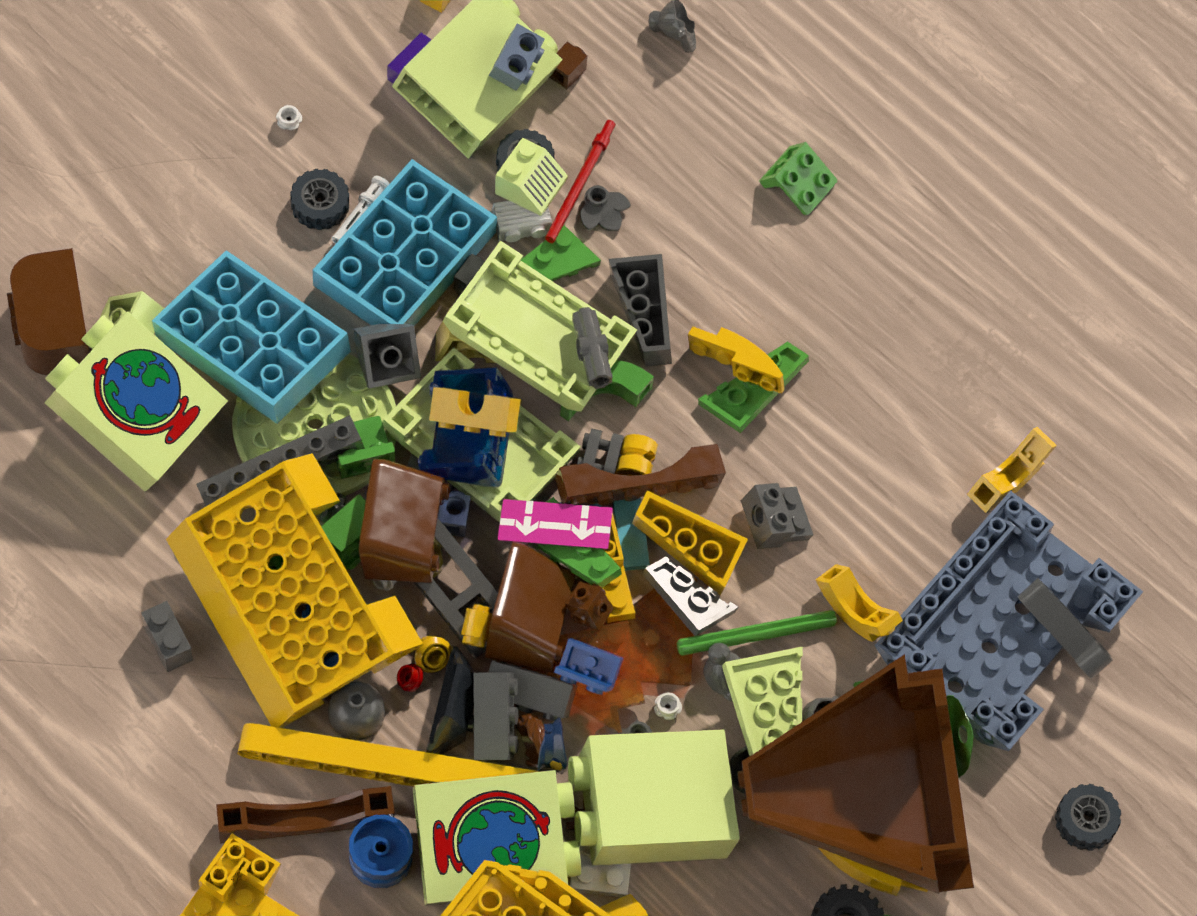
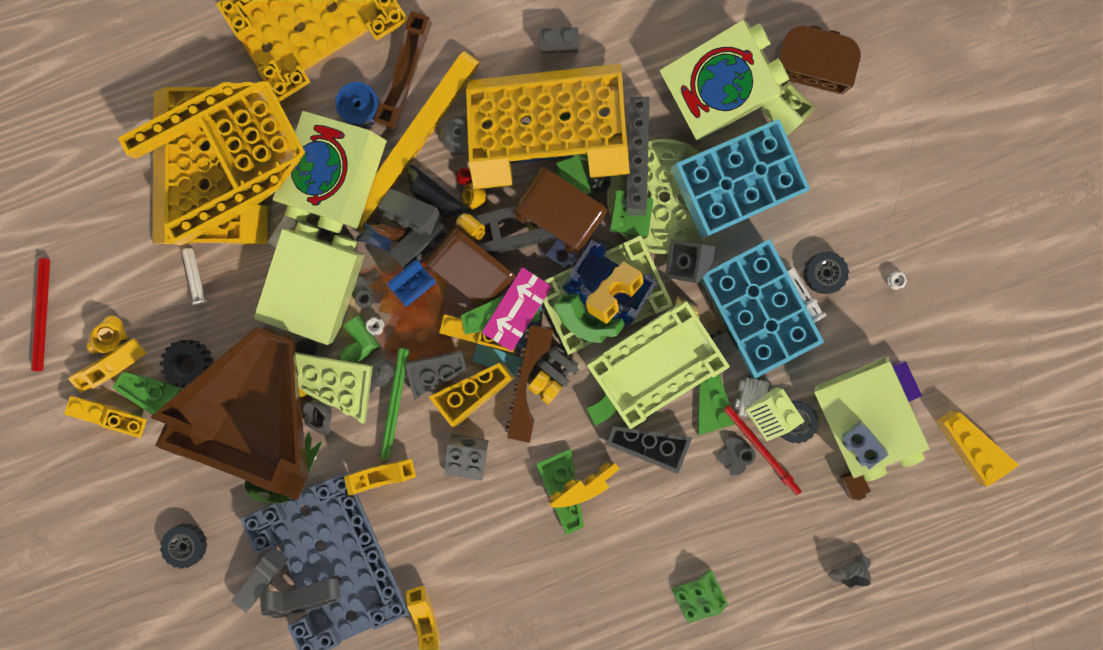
camera: 125 degrees right, 25 degrees up
(532, 436) = (581, 323): none -> bright green arch
(589, 605) = (453, 304): reddish brown brick -> none
(592, 347) = (625, 390): dark grey piece -> none
(703, 710) = (363, 344): none -> bright green brick
(1052, 686) = (260, 579): none -> dark grey beam

